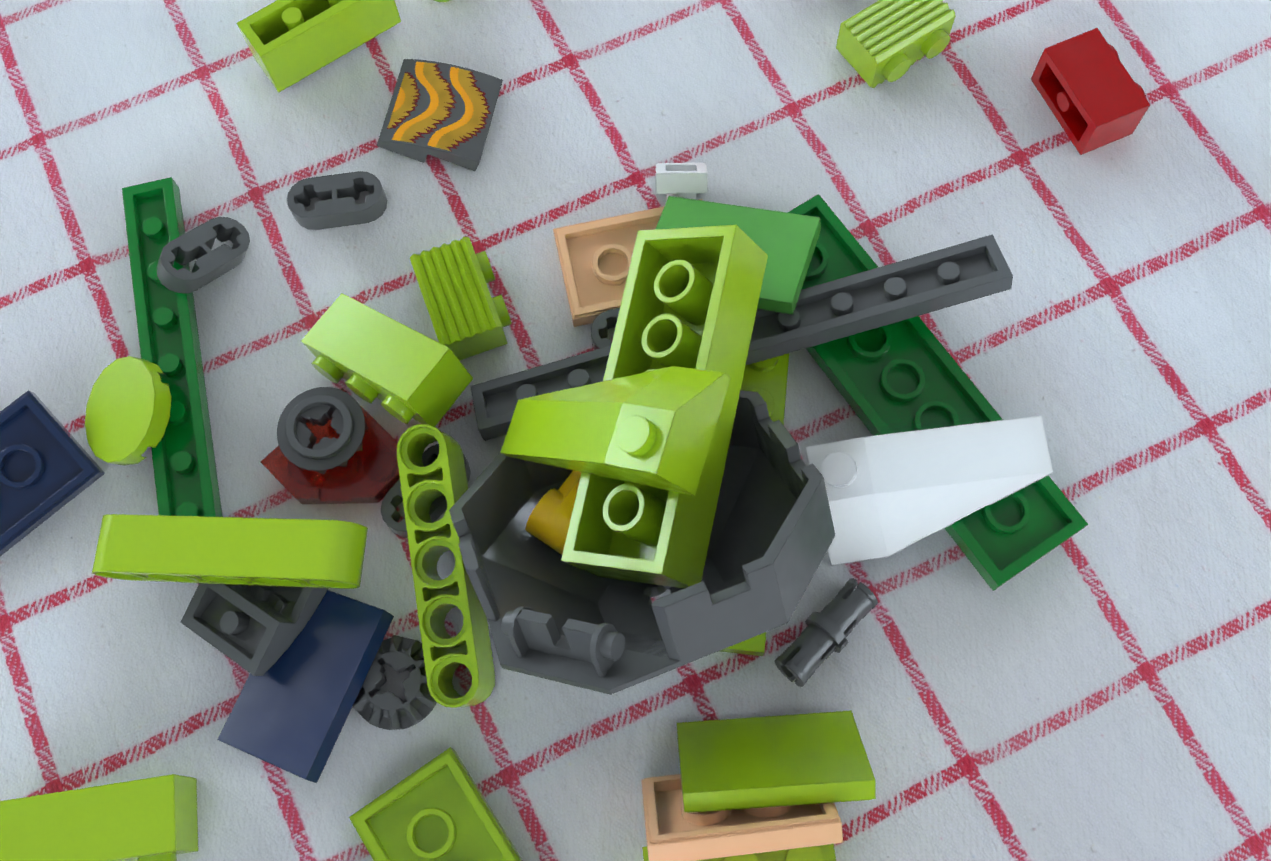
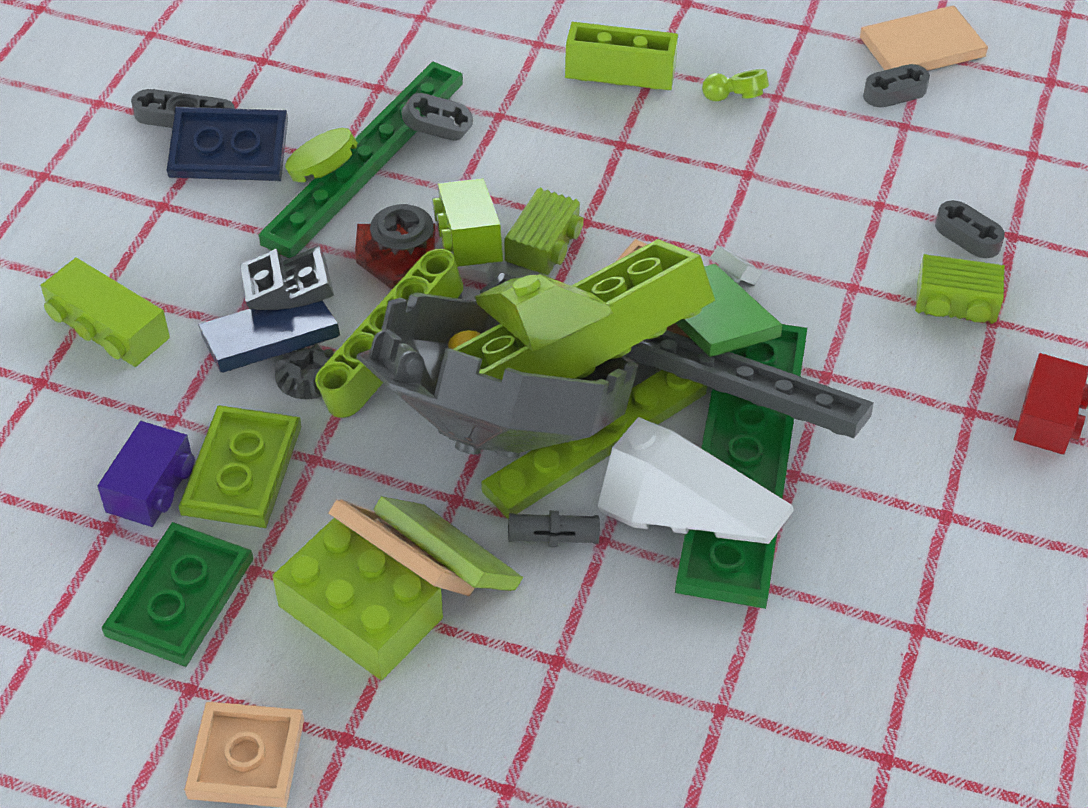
camera: 40 degrees right, 20 degrees down
(231, 550) = (297, 239): lime beam -> none
(337, 200) = (536, 146): dark grey beam -> none
(440, 112) = (639, 144): slope -> none

